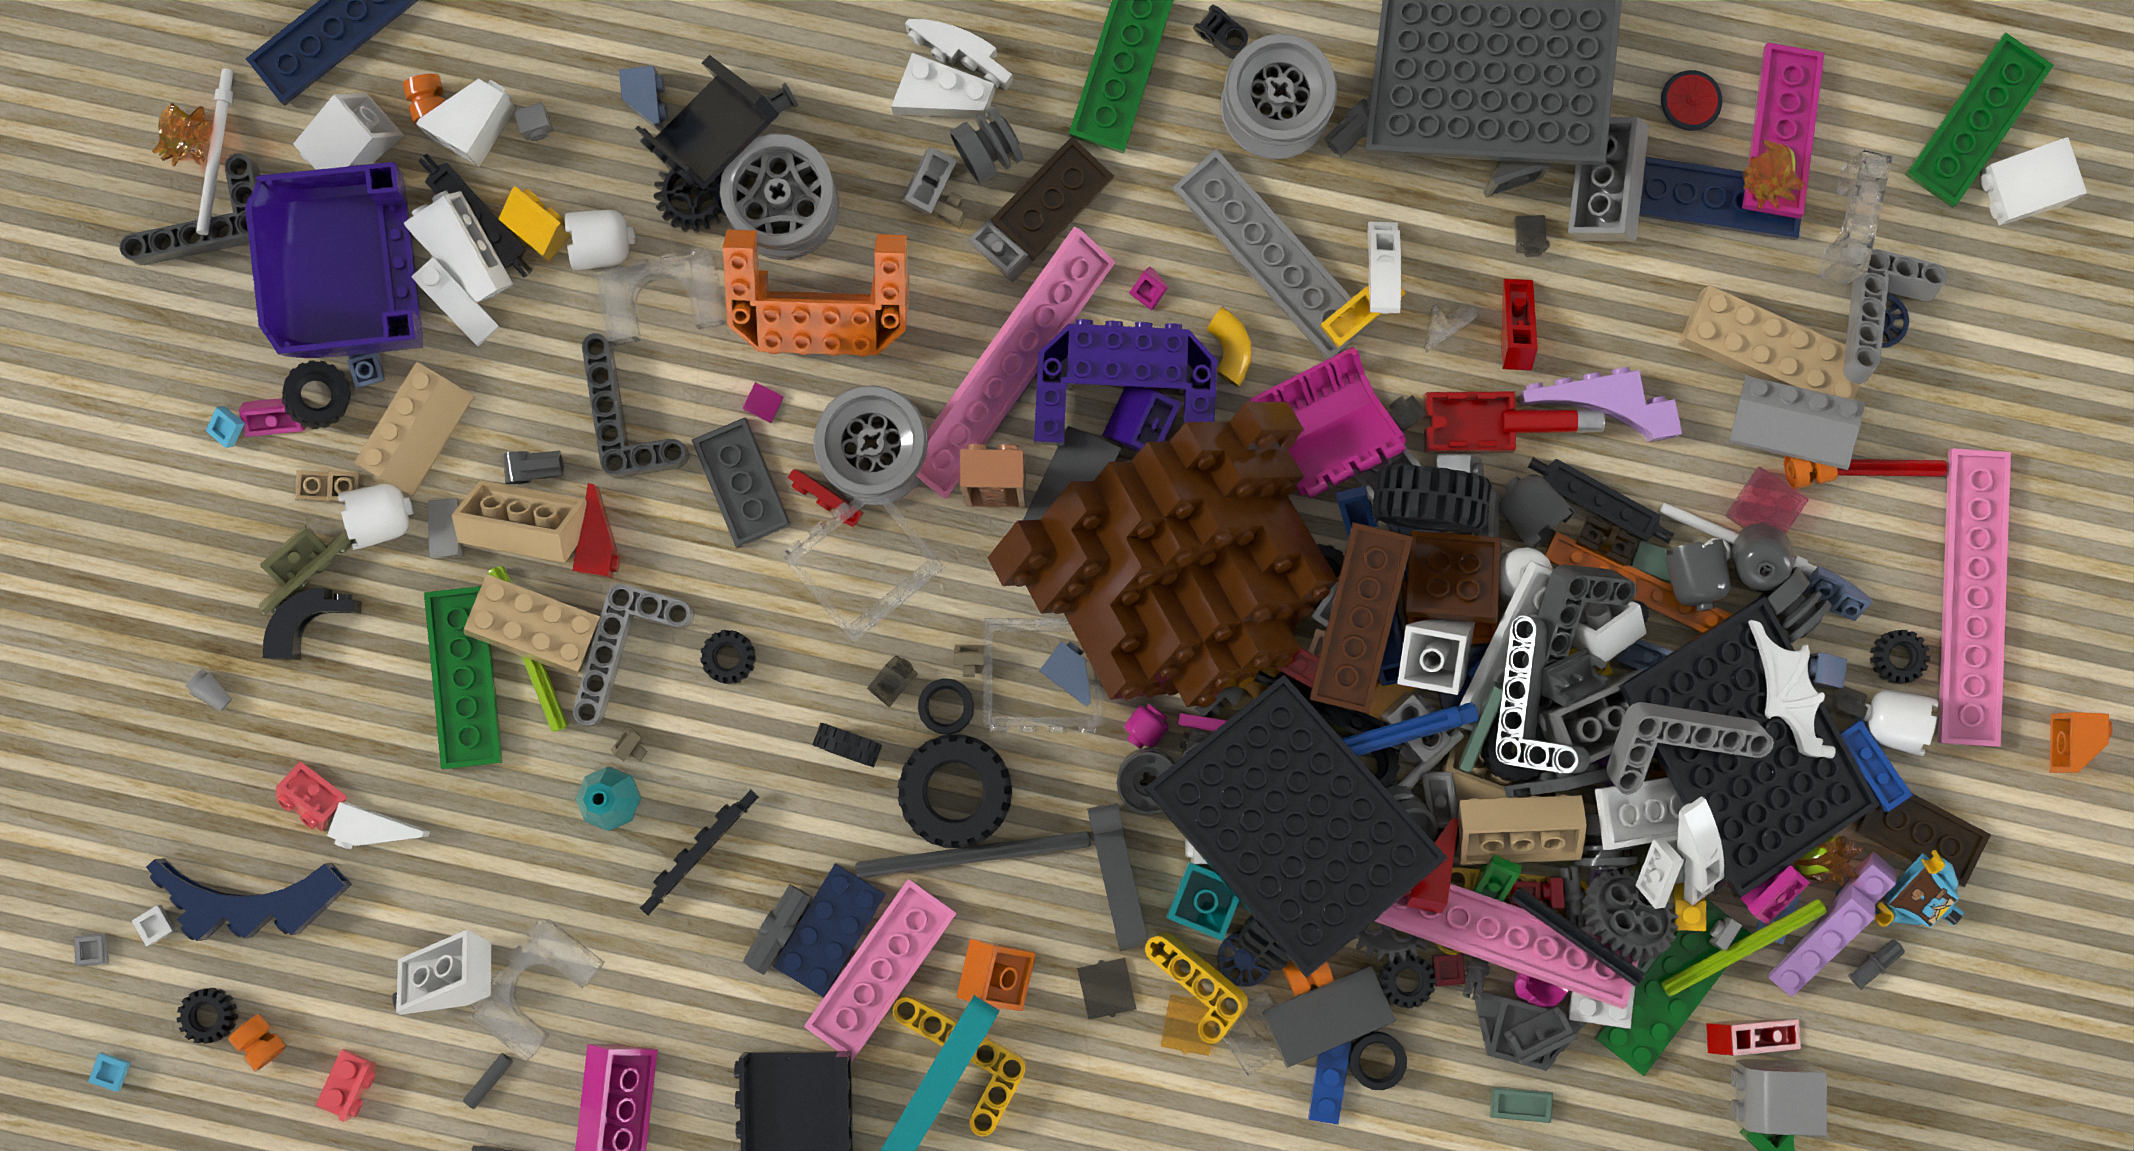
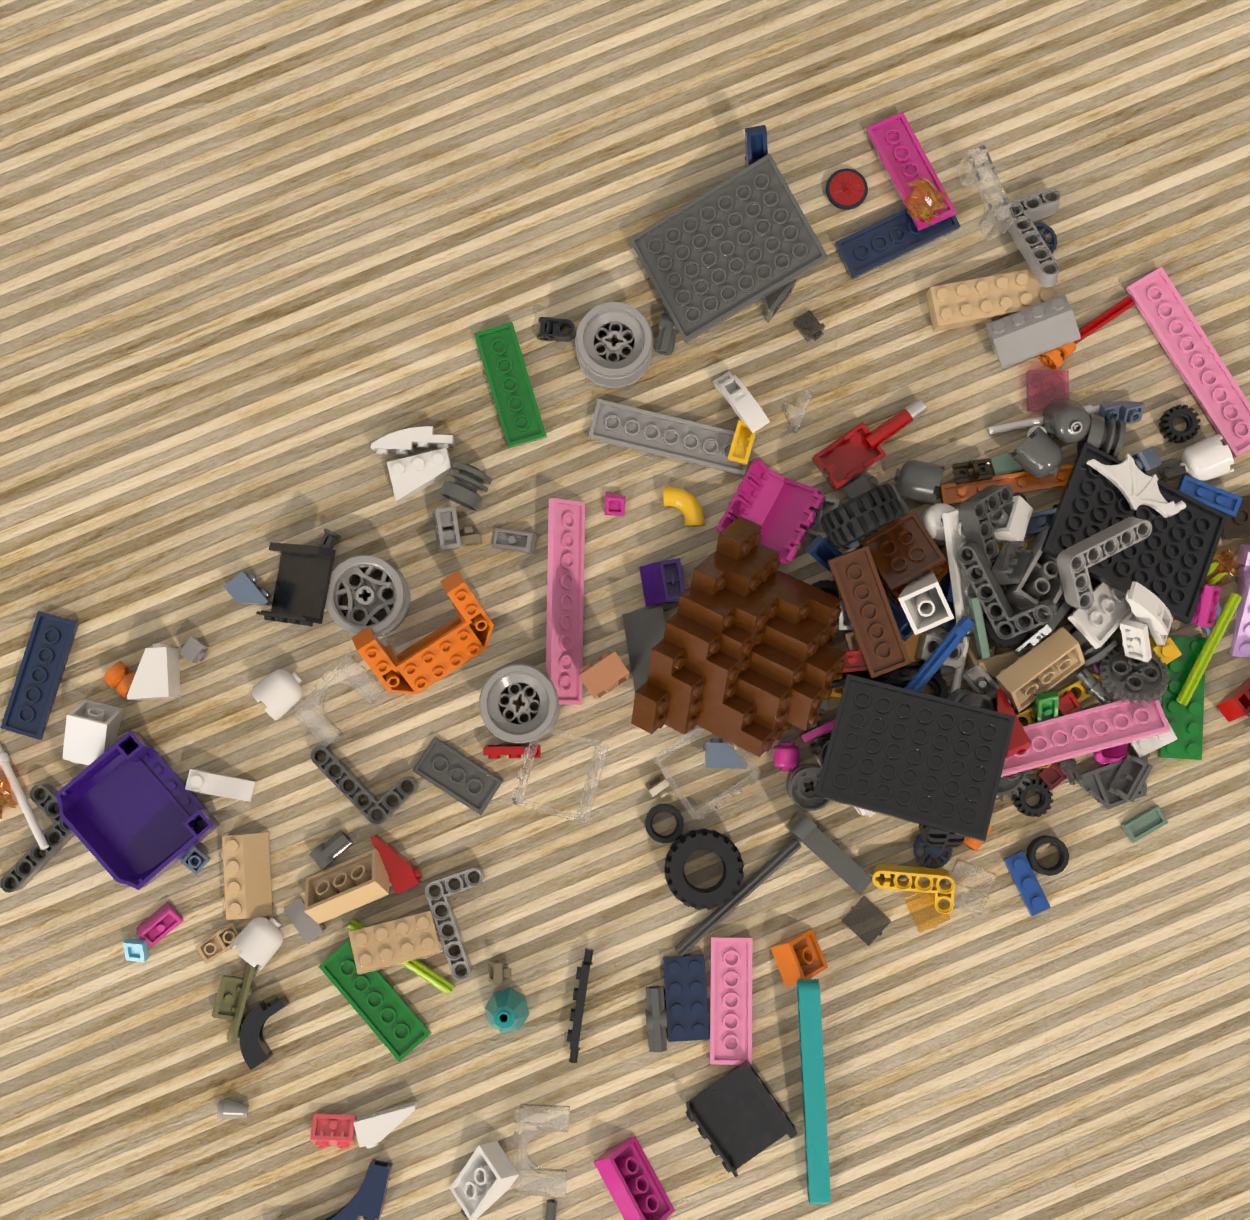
camera: 30 degrees left, 0 degrees up
(319, 372) = (172, 879): black tyre -> none
(459, 245) = (200, 751): white slope -> none
(503, 242) = (197, 727): black plate -> none
(535, 226) = (235, 710): yellow slope -> none
(681, 194) = (326, 642): black gear -> none
(710, 652) = (519, 894): black tyre -> none
(762, 402) = (439, 721): dark pink slope -> none
(847, 744) = (624, 885): black tyre -> none
(892, 680) = (623, 829): clear smoke bracket -> none
(994, 1066) = (834, 1010): yellow beam -> none
(1052, 198) = (524, 490): dark brown plate -> none
(1122, 357) = (631, 554): dark purple wedge -> none
(1203, 902) = (888, 835): teal slope -> none
(1329, 1016) = (1003, 850): dark grey tile -> none
(1406, 412) = (809, 475): clear smoke plate -> none
(1518, 325) = (838, 382): red slope -> none
(1553, 892) = (1082, 692): dark red plate -> none
(1578, 936) = (1115, 708): black axle -> none
(1602, 500) = (953, 450): black plate -> none
(1609, 196) = (840, 276): light grey brick -> none
(1617, 396) = (921, 384): lavender arch -> none
(1724, 932) = (1192, 648): light grey plate -> none
(1979, 120) = (1014, 91): green plate -> none
(2033, 182) = (1069, 105): white slope -> none

